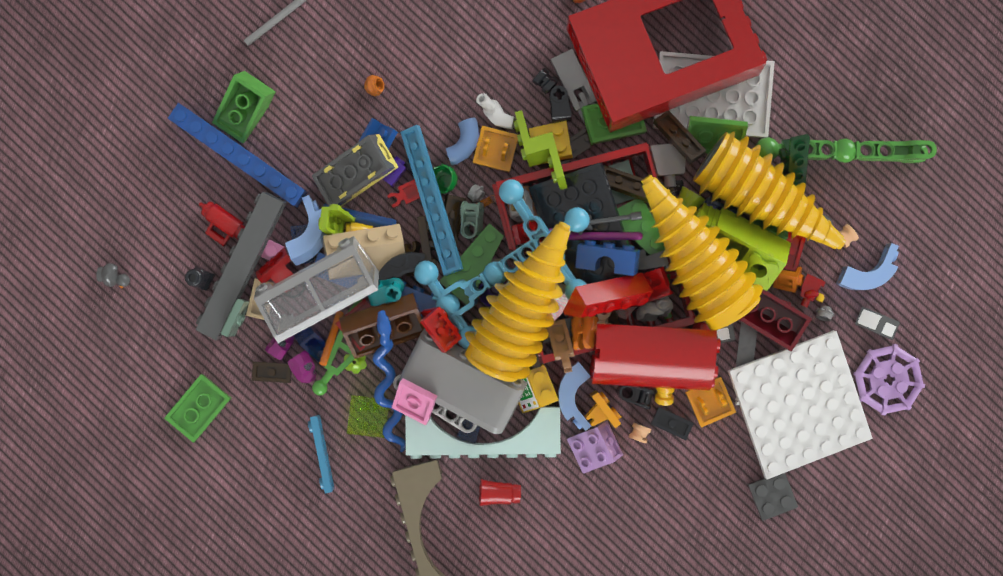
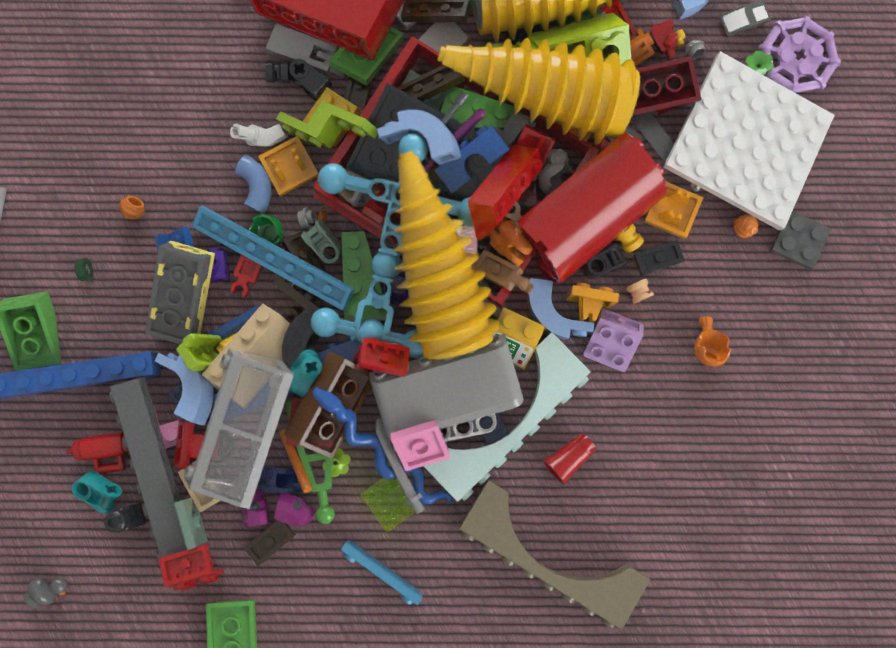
camera: 55 degrees left, 5 degrees down
(196, 244) = (96, 489): none -> teal piece
(210, 343) = (189, 567): none -> red bracket
(309, 97) = (83, 269): none -> dark green tile
(380, 429) = (413, 498): none -> light grey sword
(599, 225) = (440, 139): none -> light blue arch
(651, 507) = (711, 345): none -> orange hair
(746, 455) = (745, 226): none -> orange piece
(859, 359) = (760, 62): none -> bright green plant

